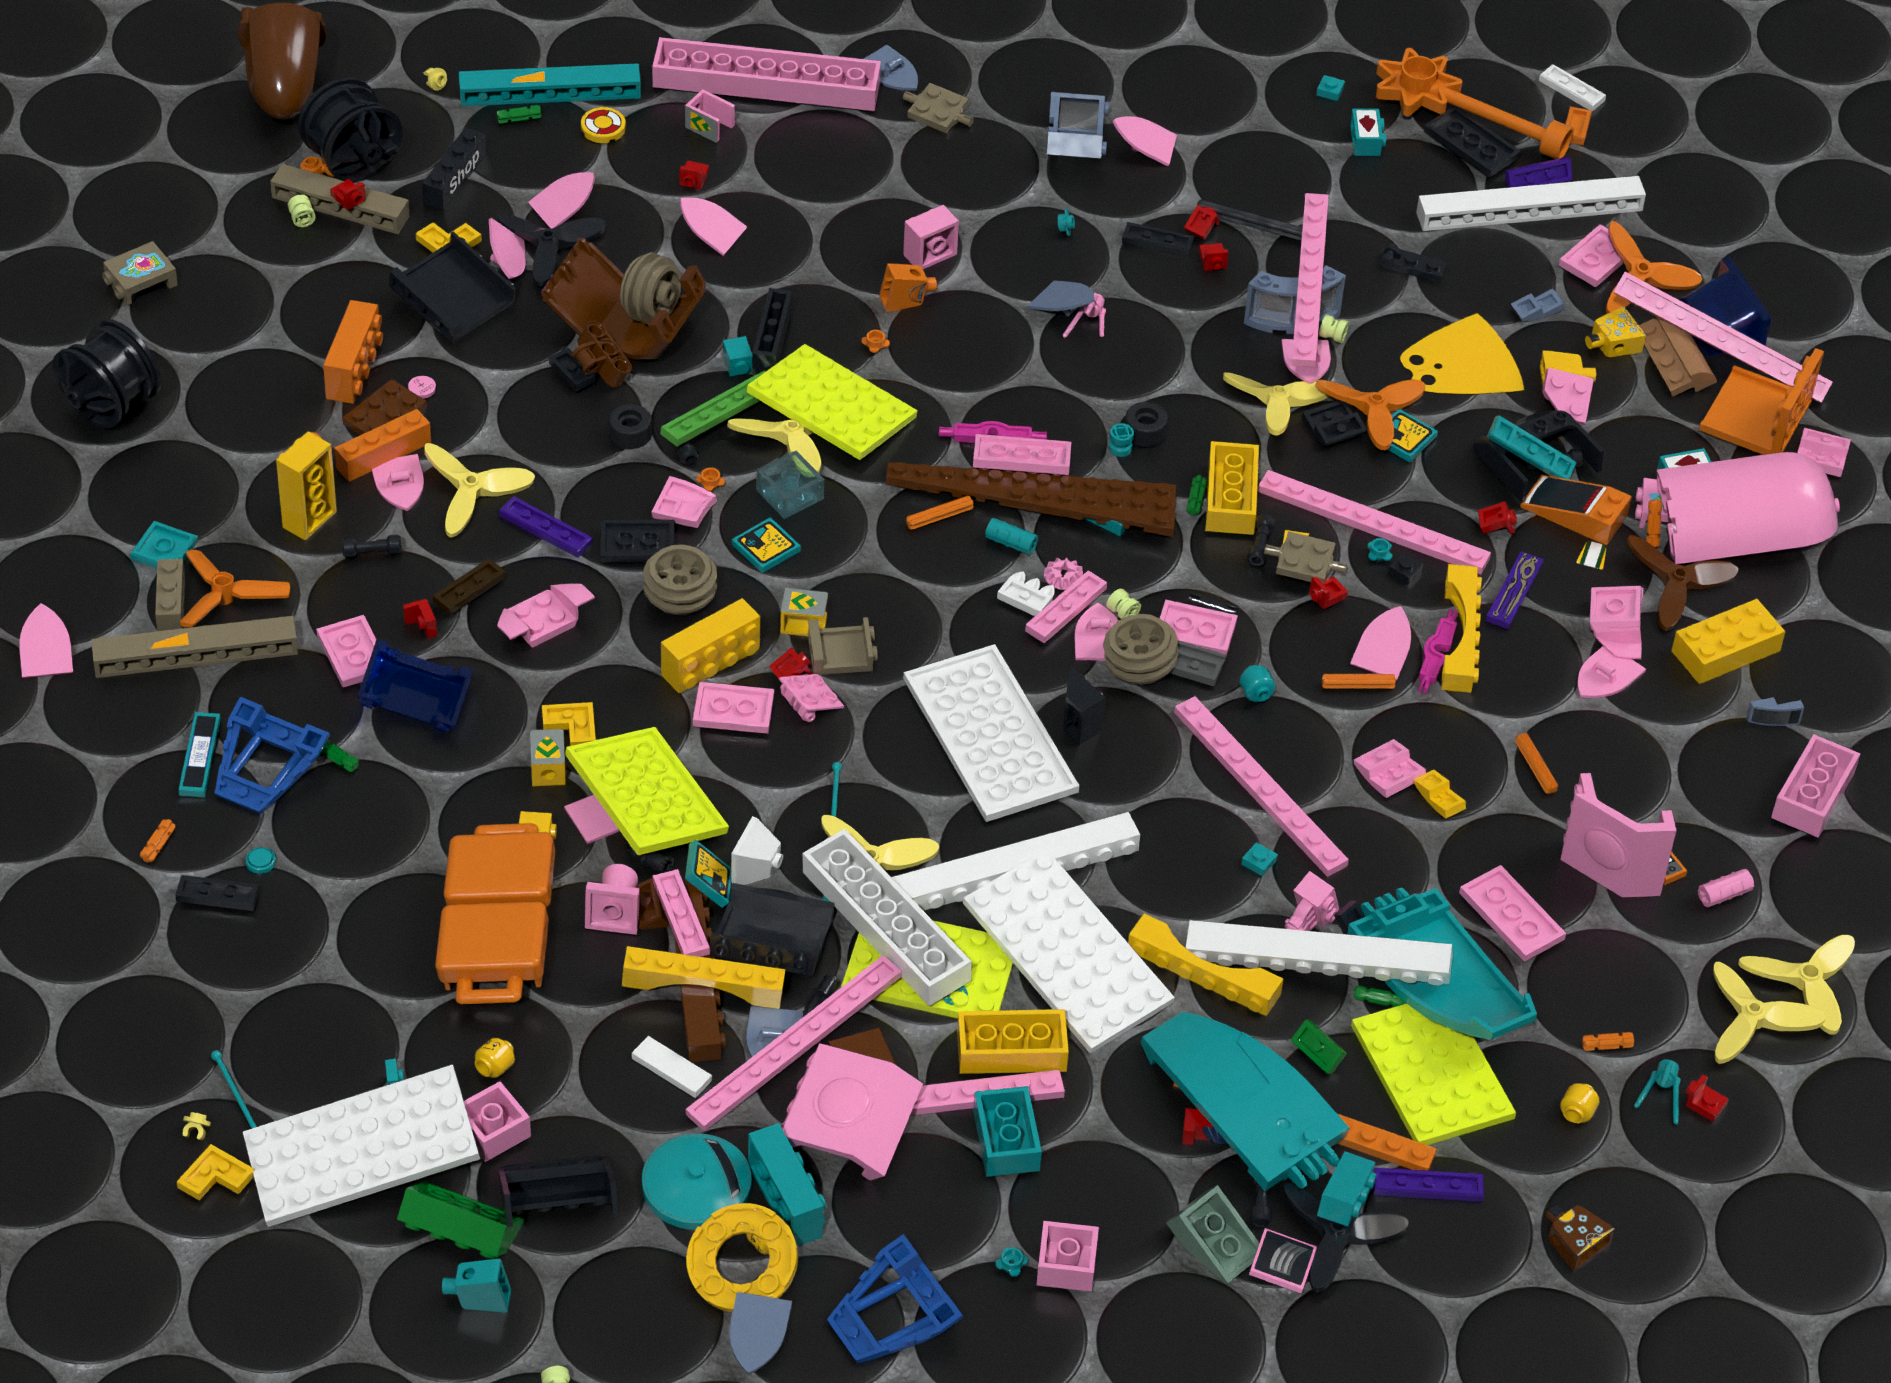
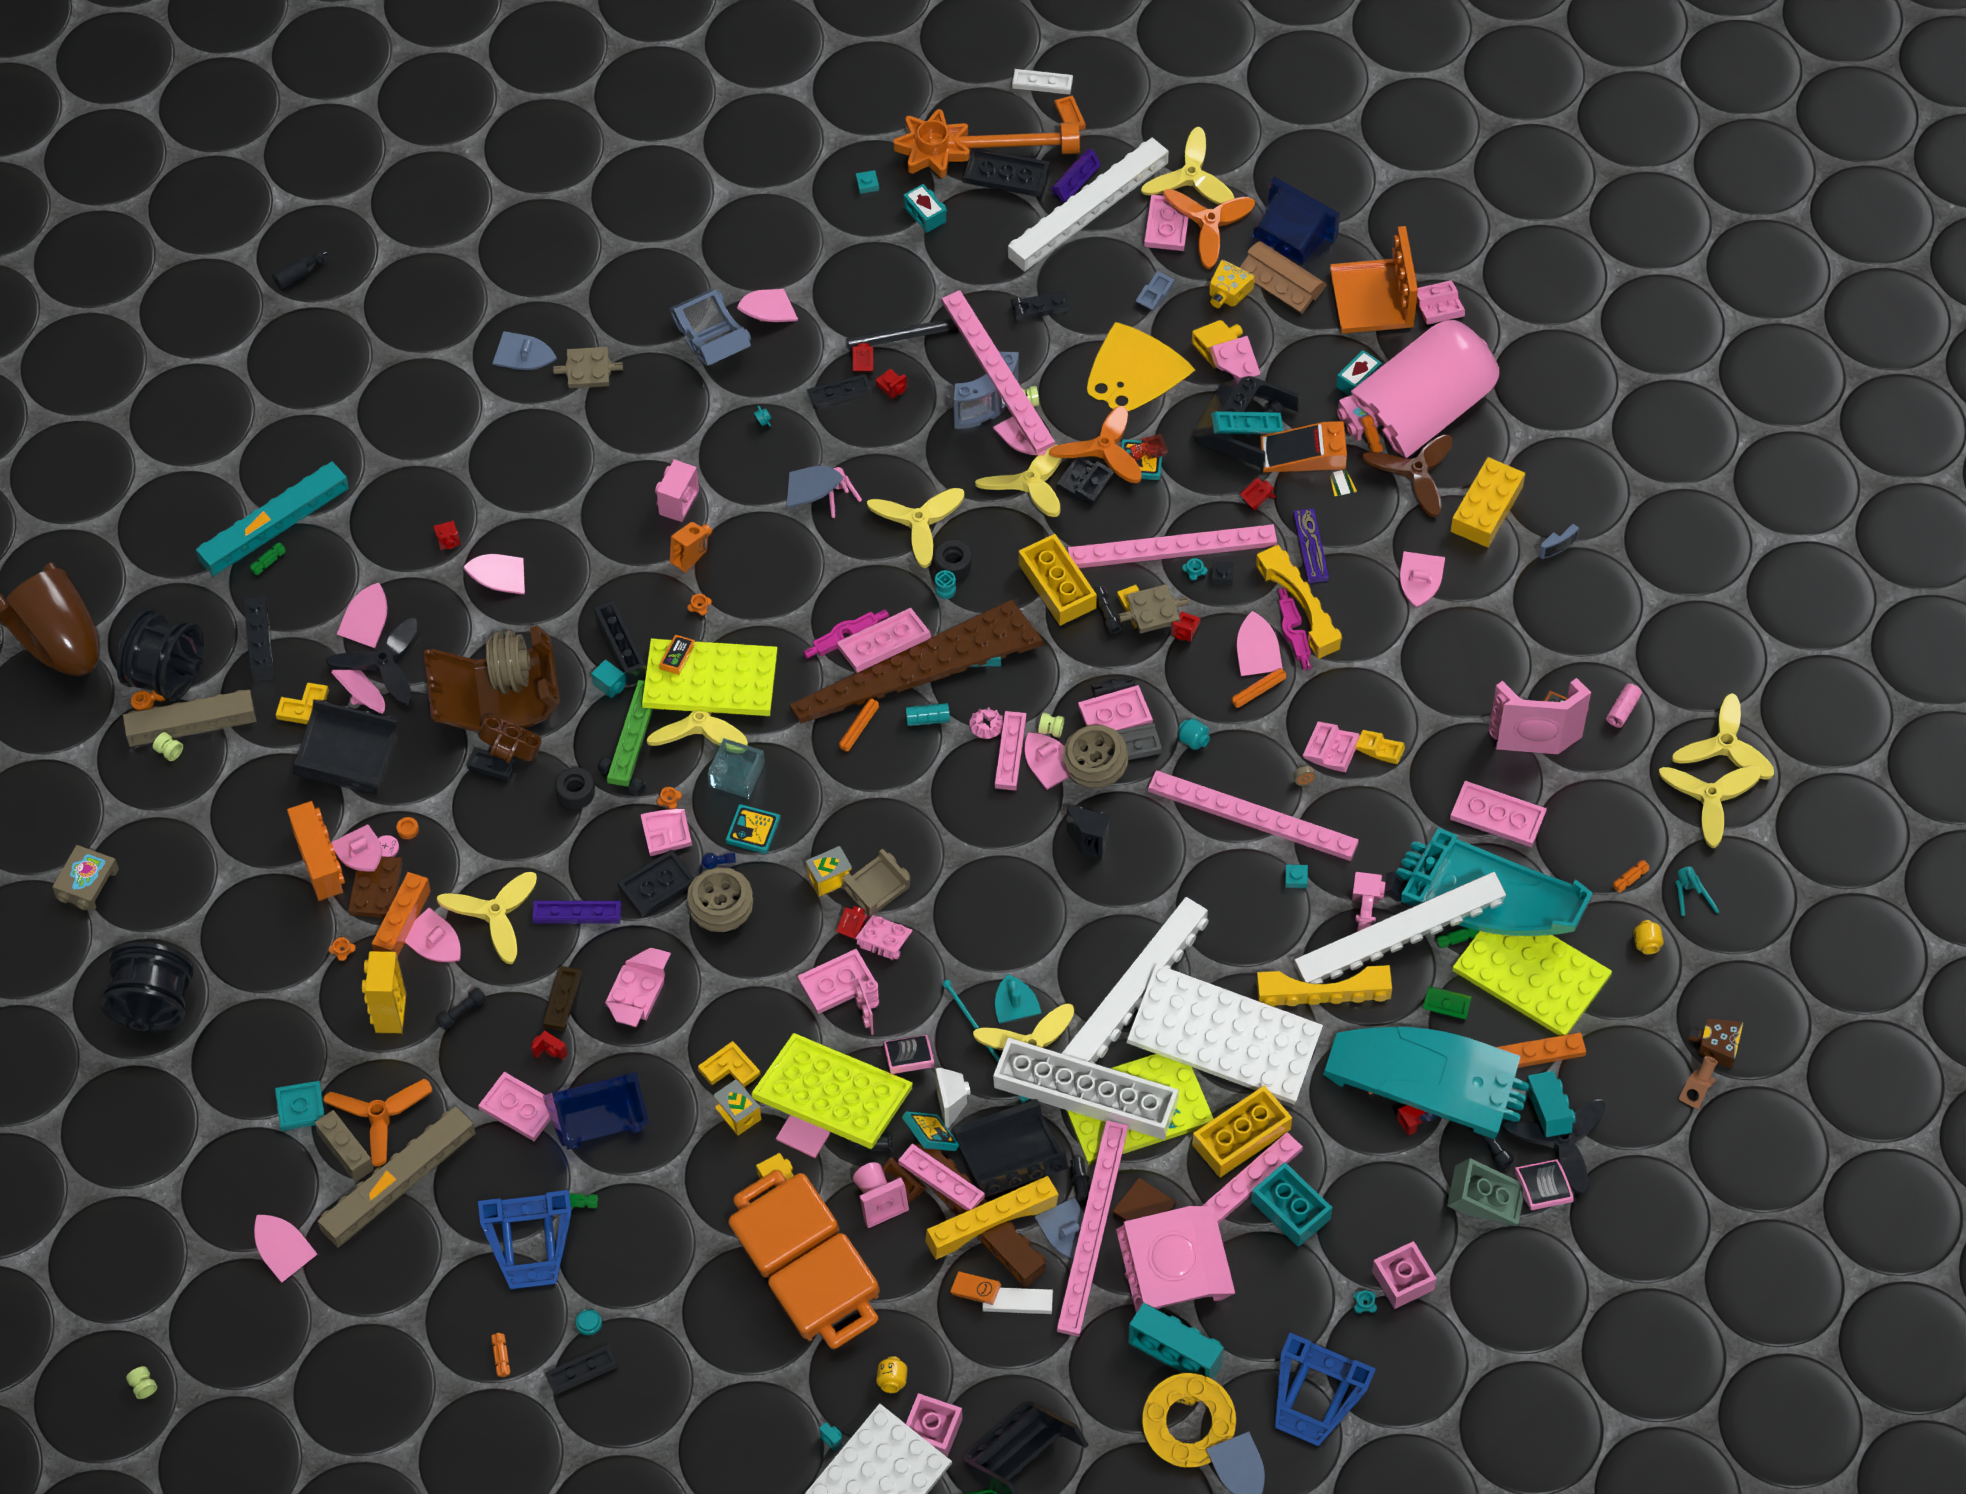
camera: 30 degrees left, 10 degrees up
(199, 754) = (472, 1263): tile -> none
(349, 194) = (201, 712): red bracket -> none
(395, 375) = (359, 849): none -> bright pink shield
(436, 78) = (177, 564): light yellow plate -> none
(454, 382) = (407, 828): none -> orange tile
(603, 125) = (341, 530): tile -> none
(638, 1031) = (975, 1288): none -> orange tile
(694, 1178) = (1104, 1379): teal dish -> none
(708, 115) = (421, 467): piece -> none
(710, 645) = (786, 942): yellow brick -> none
(719, 554) = (711, 860): none -> clear blue arm
(745, 734) = (867, 999): none -> bright pink hinge
(746, 802) = (909, 1054): none -> slope
(766, 74) = (437, 413): bright pink brick -> none
(813, 364) = (677, 654): none -> tile
(891, 816) = (1015, 1000): none -> teal shield
(991, 733) = (1035, 888): white plate -> none
(1027, 595) = (975, 758): white plate -> none
(1143, 376) = (920, 519): none -> light yellow piece
(1196, 495) = (1032, 599): green axle -> none
(1339, 777) = (1304, 775): none -> dark tan tile
(1419, 426) = (1151, 447): none -> clear red plate
(1429, 1184) = (1595, 1062): dark purple tile -> none
(1524, 1259) = (1700, 1081): none -> nougat bracket
(1536, 763) = (1427, 681): orange axle -> none
(1617, 619) = (1401, 527): bright pink piece -> none
(1658, 226) = (1191, 174): none -> light yellow piece
(1704, 1099) = (1725, 882): red bracket -> none
(1714, 333) = (1302, 247): bright pink plate -> none
(1815, 785) = (1628, 586): bright pink brick -> none

